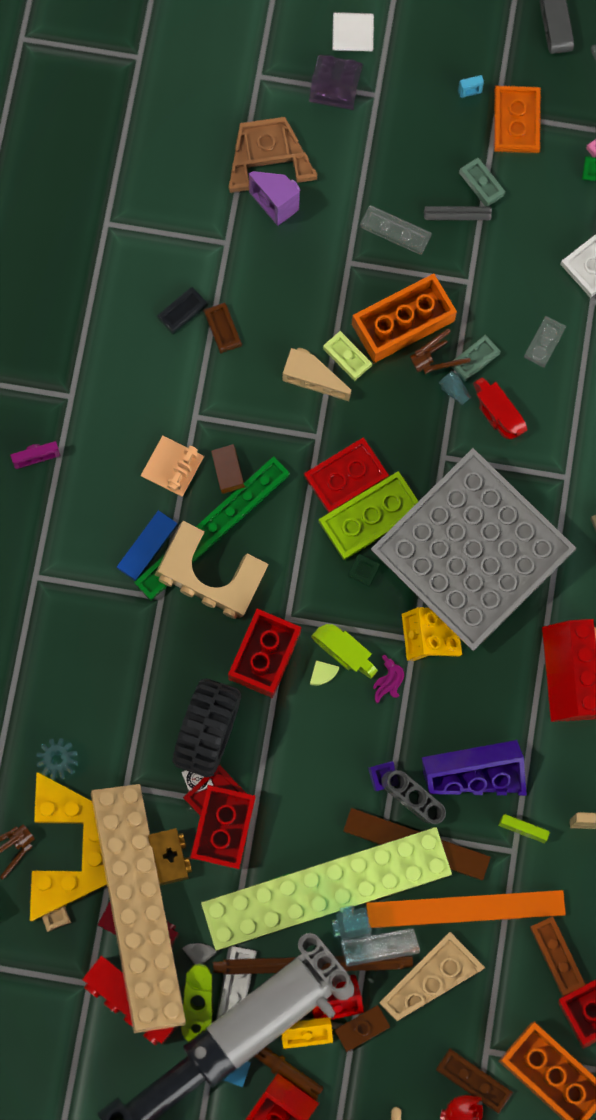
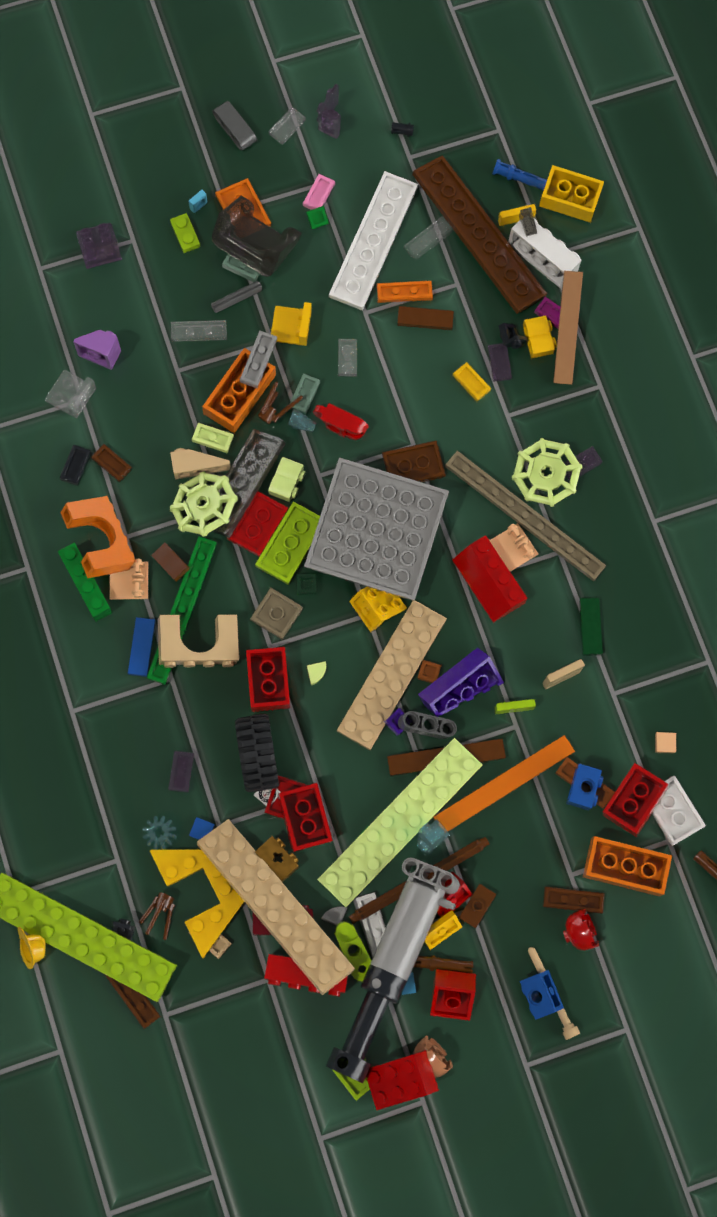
camera: 30 degrees left, 0 degrees up
(35, 454) = (24, 622): magenta plate -> none
(104, 778) = (201, 828): none -> blue tile
(116, 705) = (181, 771): none -> clear purple plate
(123, 443) = (86, 586): none -> green brick
(179, 377) = (100, 514): none -> orange arch
(219, 229) = (71, 393): none -> clear bracket
(265, 144) = (71, 315): medium nougat wing -> none
(302, 433) = (212, 507): none -> yellowish green plate
(314, 586) = (276, 613): none -> dark tan tile
(344, 649) = (323, 647): lime piece -> none
(352, 421) = (248, 475): none -> clear smoke plate
(353, 31) = (91, 203): white sticker -> none
(380, 947) = (459, 842): clear tile -> none
(389, 682) = (367, 653): magenta piece -> none
(403, 443) = (286, 479): none -> yellowish green brick
(405, 720) = (391, 675): none -> tan plate
(435, 974) = (507, 841): tan wing -> none
(438, 114) = (185, 233): none -> lime plate
(442, 294) = (258, 359): none -> light grey tile
(448, 738) = (429, 671): none -> dark orange tile
(501, 274) = (292, 324): none -> yellow bracket
(507, 158) = (251, 239): none -> clear smoke windscreen
(539, 967) = (577, 796): none -> blue brick
(558, 497) = (415, 462): none -> reddish brown tile

